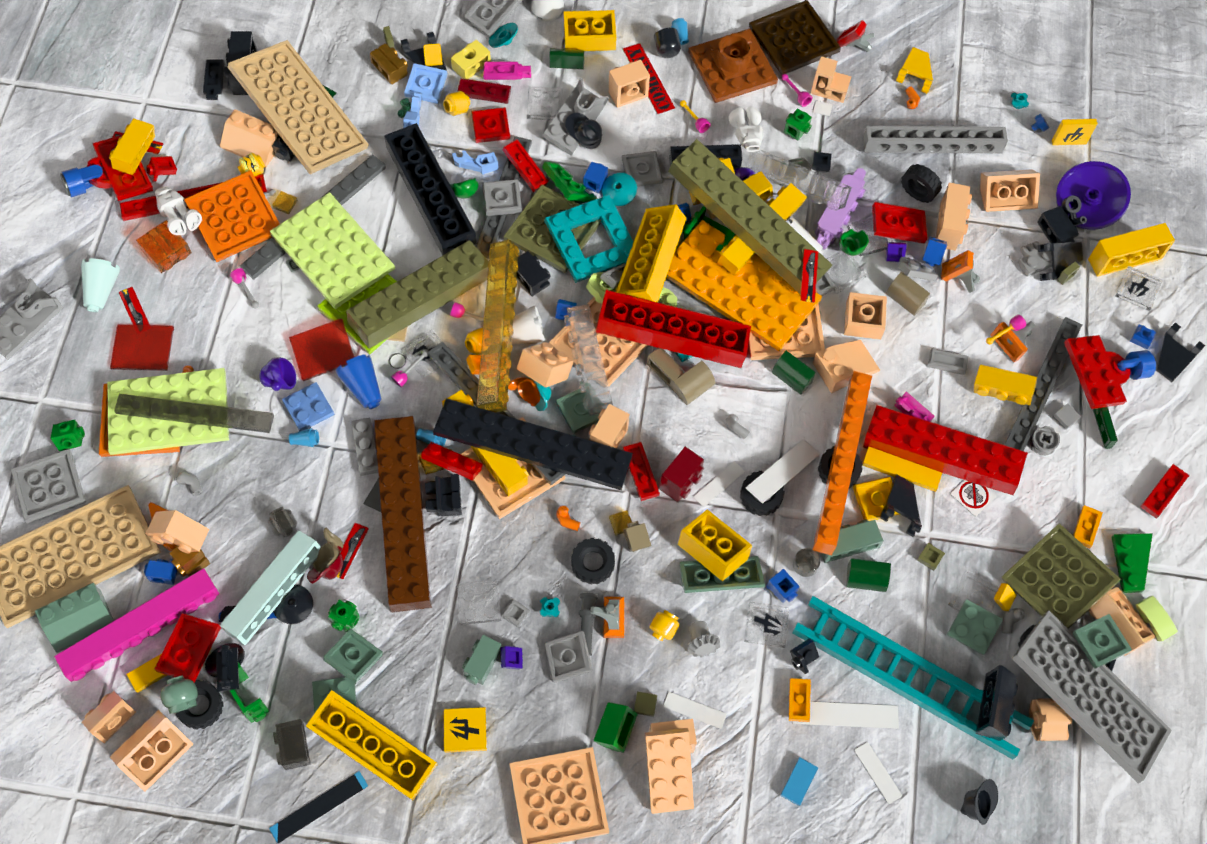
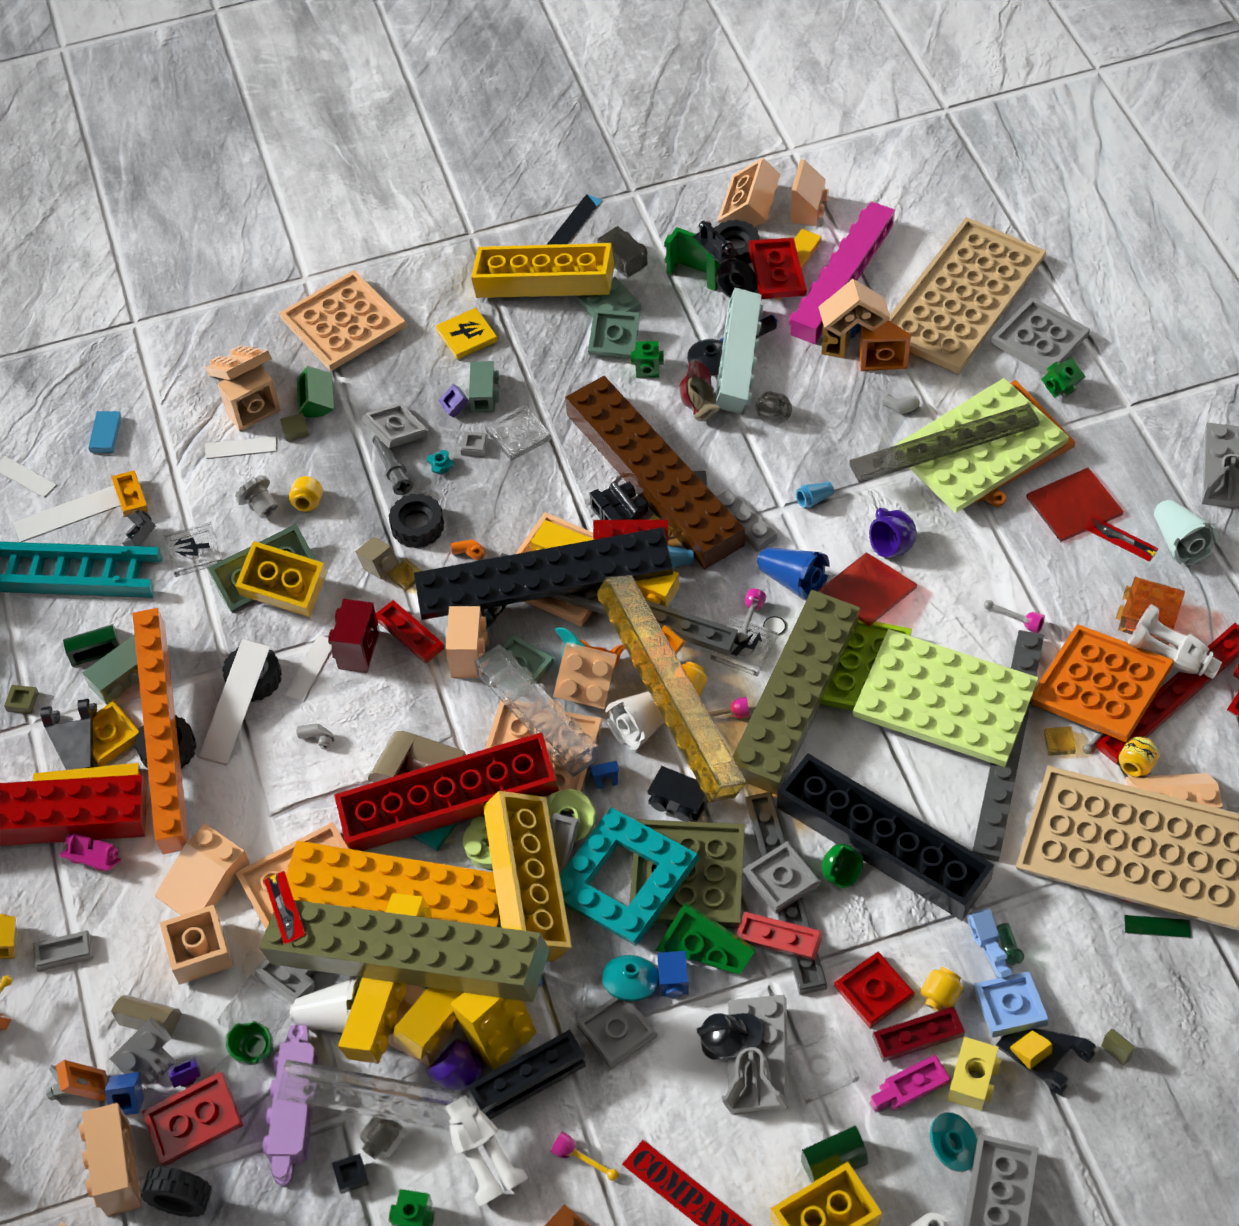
camera: 160 degrees right, 10 degrees down
(74, 617) = (909, 253): sand green slope -> none
(179, 694) = (748, 221): sand green piece -> none
(308, 407) = (837, 529): medium blue plate -> none
(352, 546) = (688, 428): sticker -> none
(389, 63) = (1084, 1004): pearl gold brick -> none
(476, 164) = (853, 912): light blue piece -> none
(613, 616) = (365, 480): piece -> none
(628, 83) = (707, 1142): light nougat brick -> none
(784, 580) = (188, 585): blue brick -> none
(793, 372) = (267, 830): dark green brick -> none
(806, 562) = (173, 616): clear smoke head -> none

